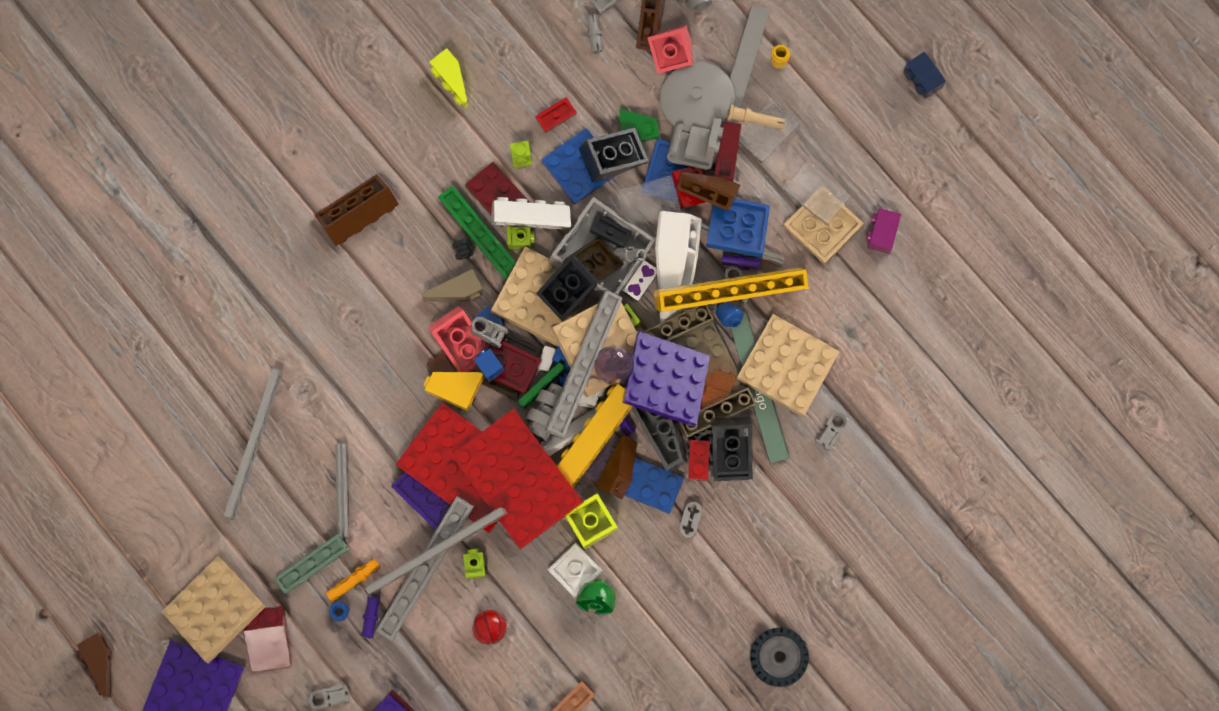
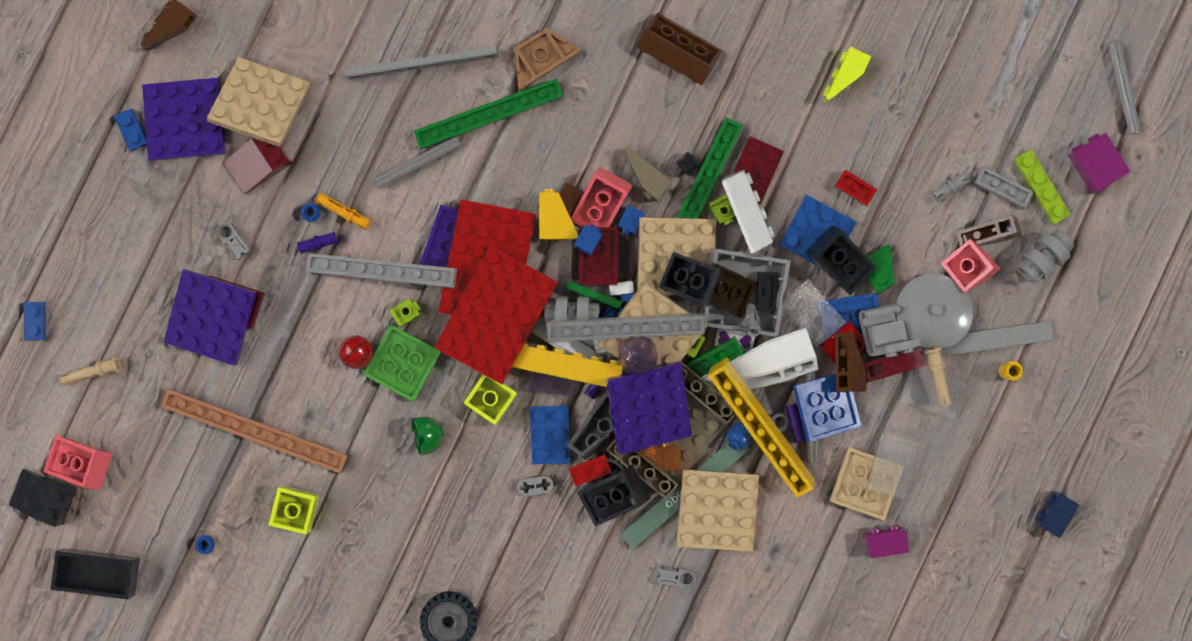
camera: 65 degrees right, 10 degrees up
(301, 334) = (541, 55): none -> medium nougat wing
(311, 564) = (340, 168): sand green tile -> none
(329, 406) = (488, 114): none -> green plate
(436, 550) = (398, 274): light grey tile -> none
(489, 332) = (618, 228): light grey piece -> none
(520, 589) = (402, 363): none -> bright green plate
(521, 154) = (802, 173): lime brick -> none
(574, 569) = (443, 403): white tile -> none
(619, 469) = (549, 401): reddish brown slope -> none
(648, 314) = (702, 364): none -> green plate

